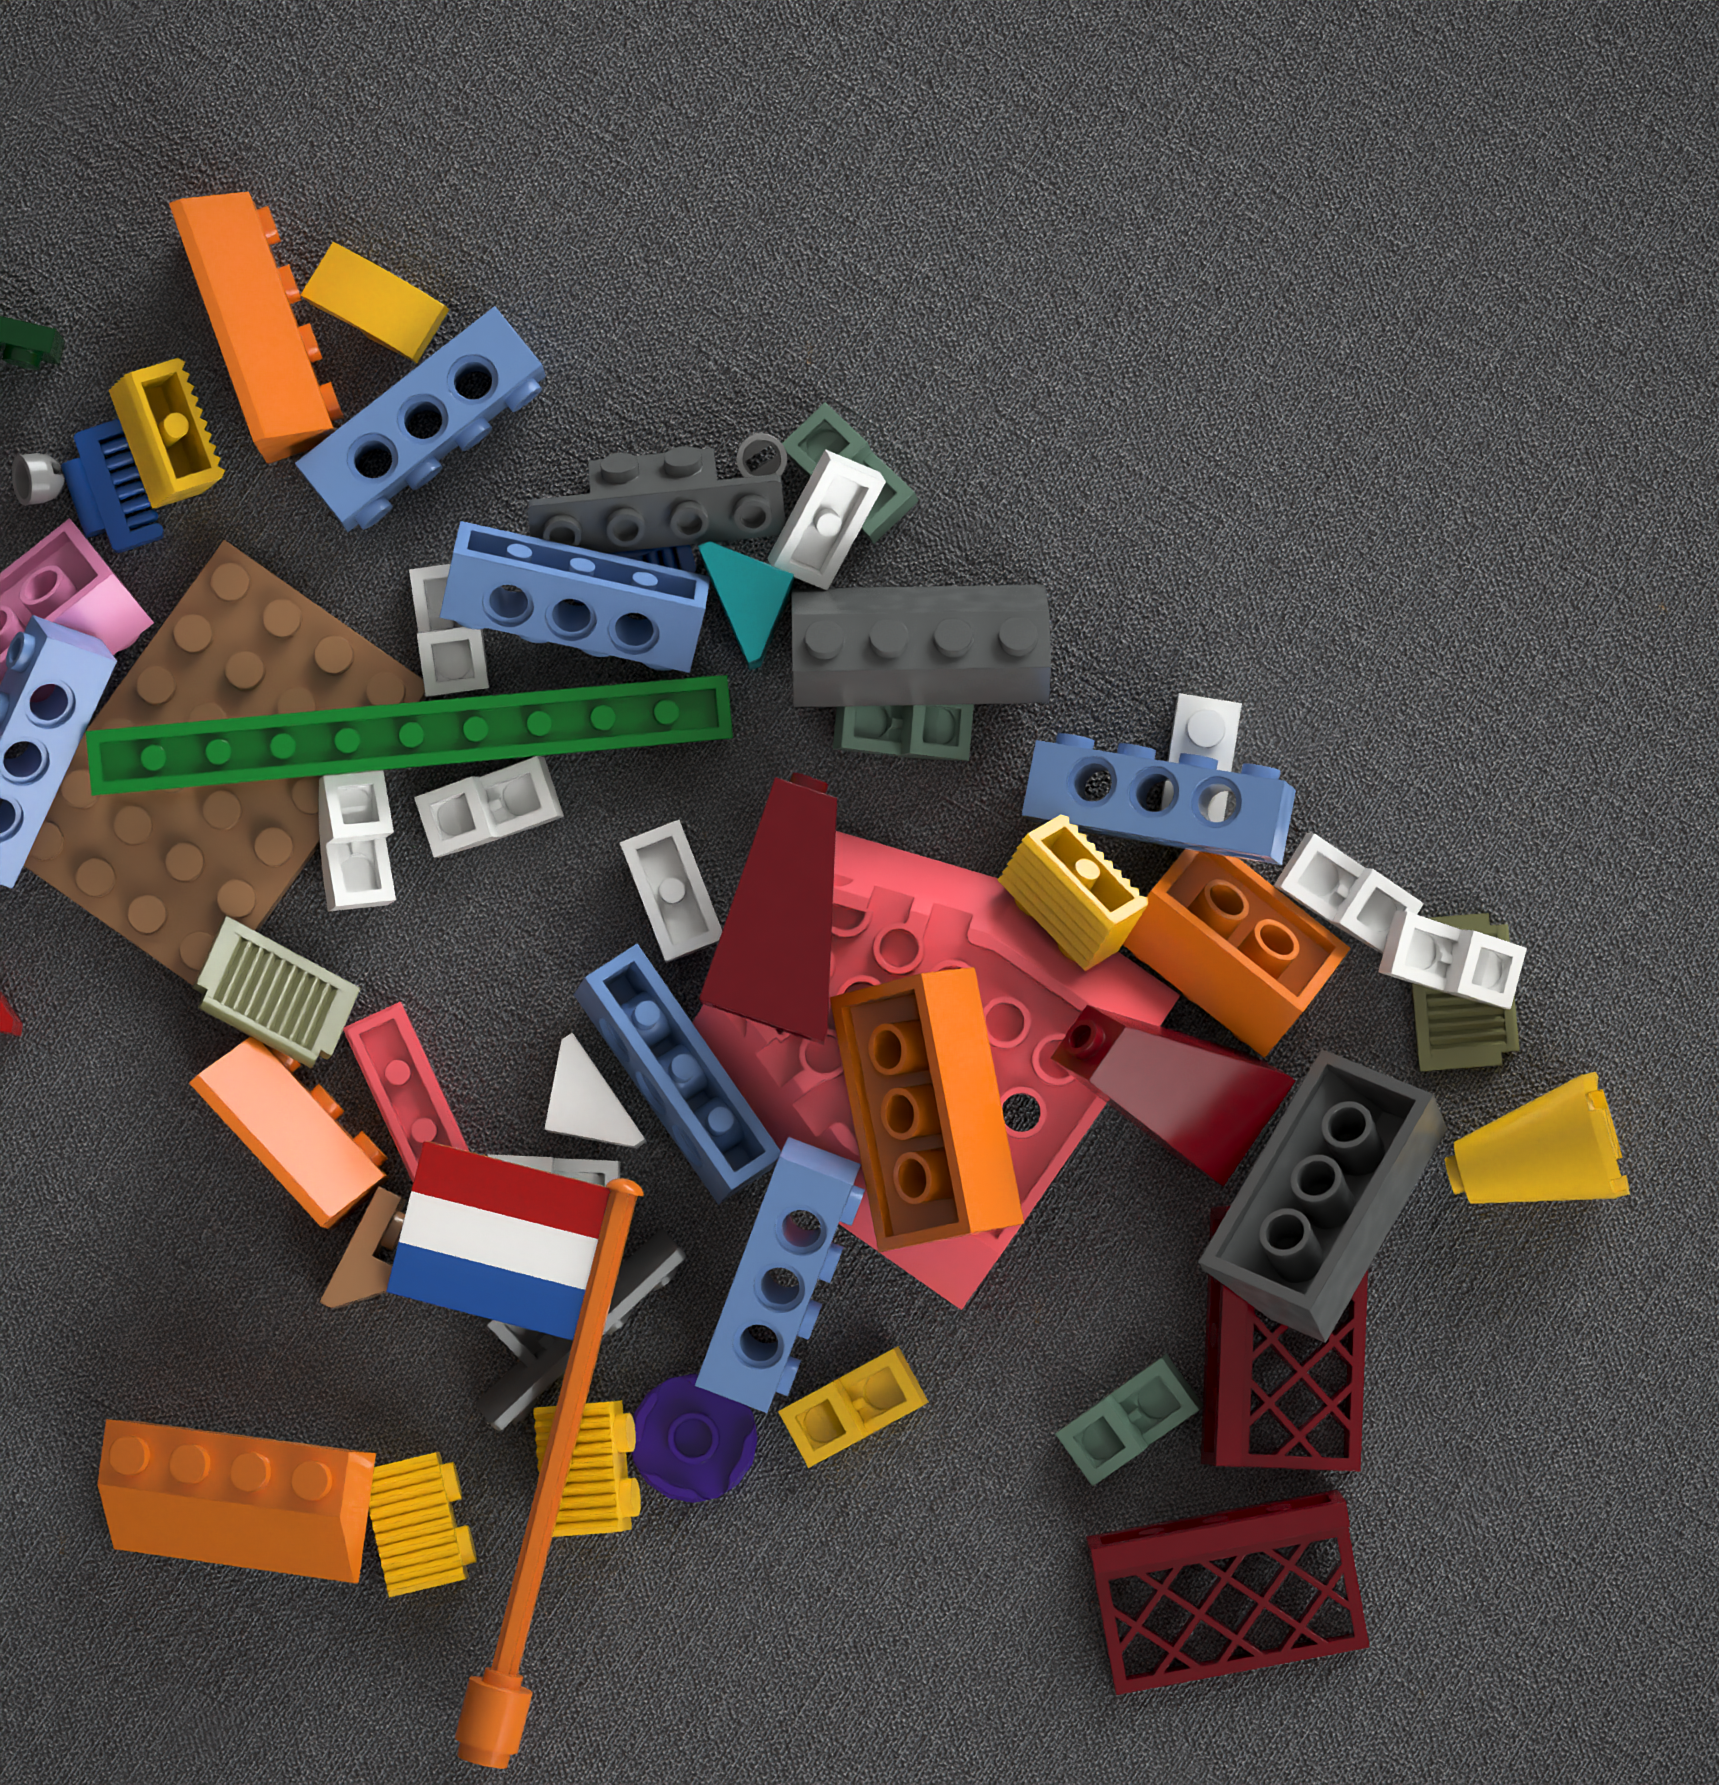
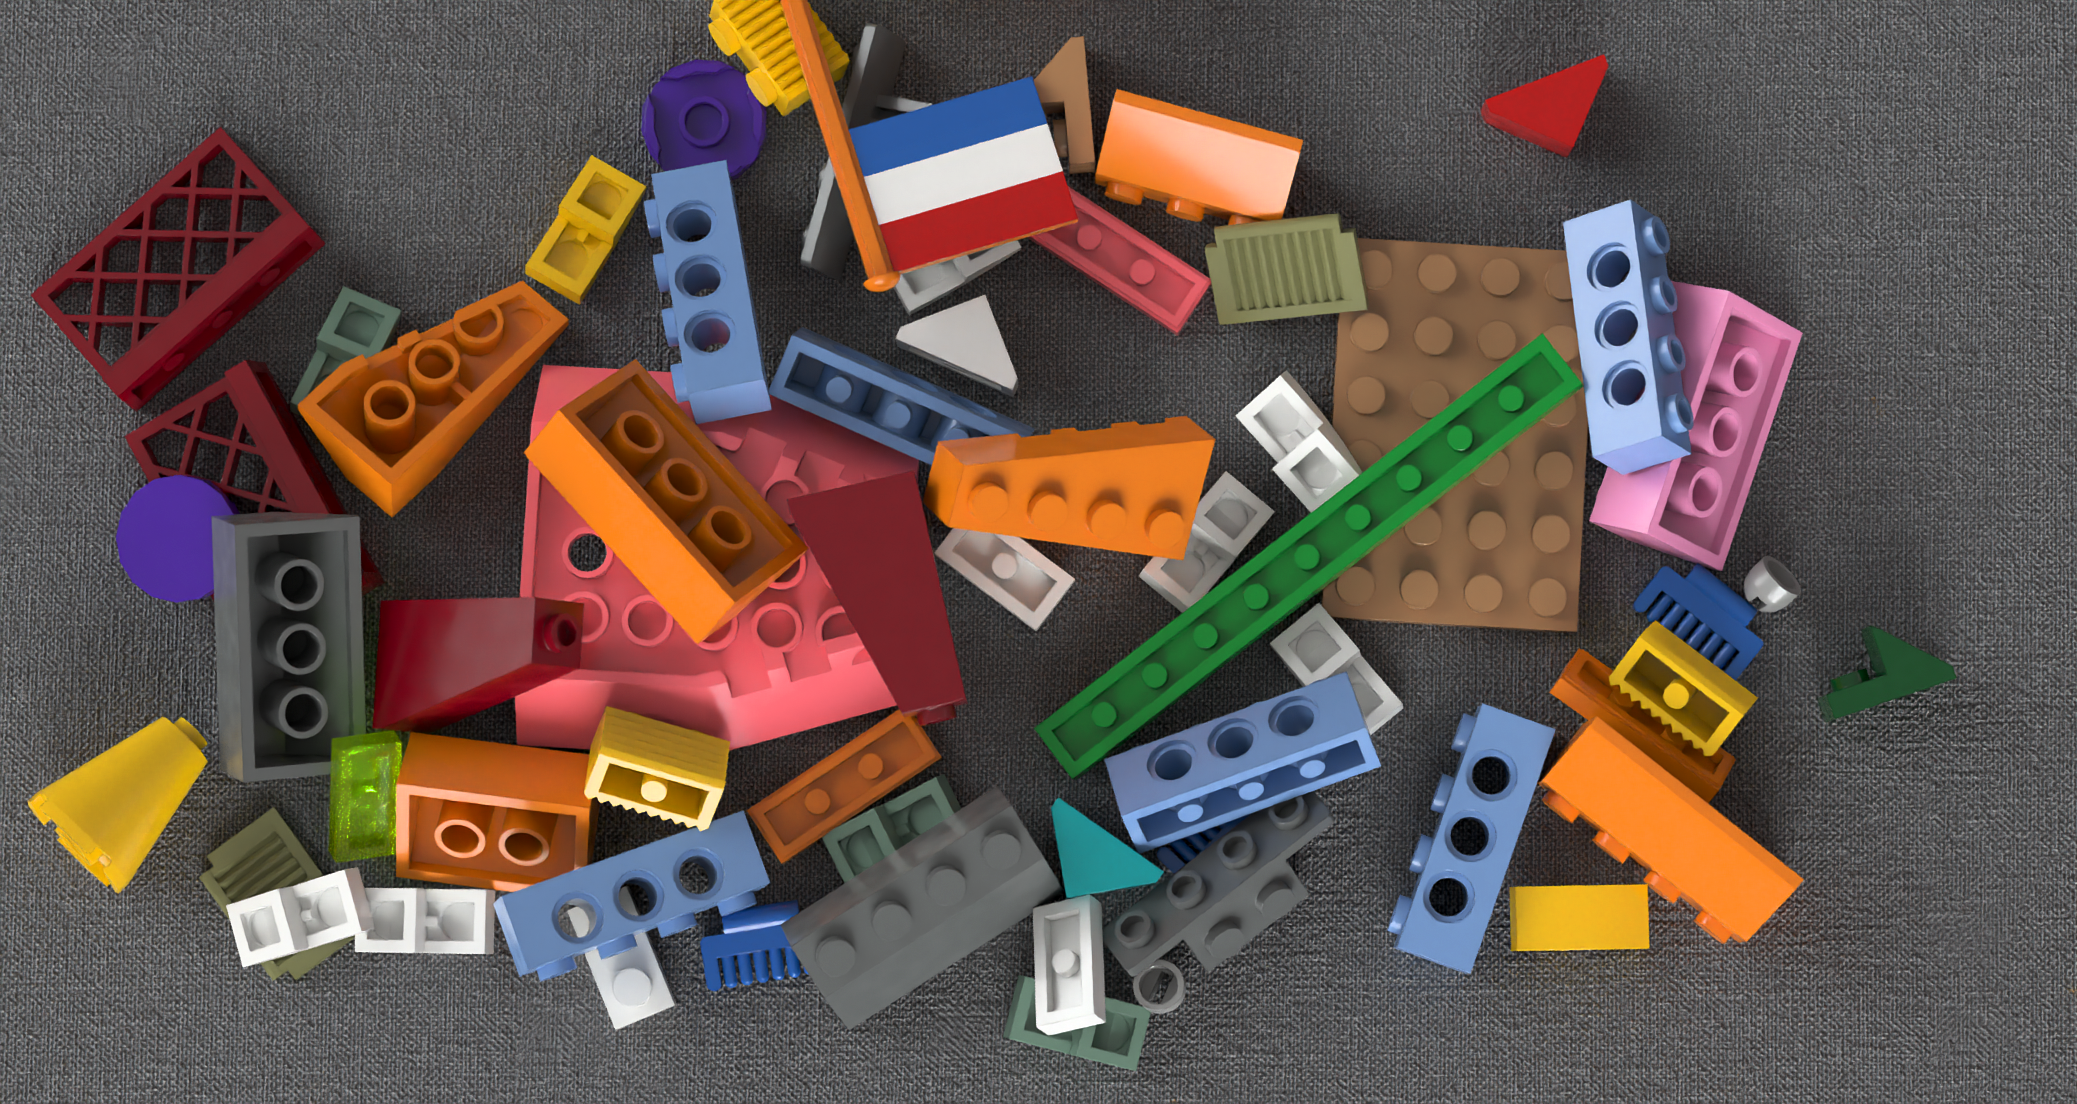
camera: 155 degrees right, 0 degrees up
(246, 483) = (1587, 690): none -> orange tile
(557, 899) = (1089, 488): none -> orange wedge
(924, 792) = (843, 785): none -> orange tile
(1076, 713) = (750, 932): none -> blue piece
(1092, 1342) = (415, 405): none -> orange wedge
(1336, 1025) = (363, 795): none -> clear neon green plate
(1371, 1354) = (168, 537): none -> dark purple tile

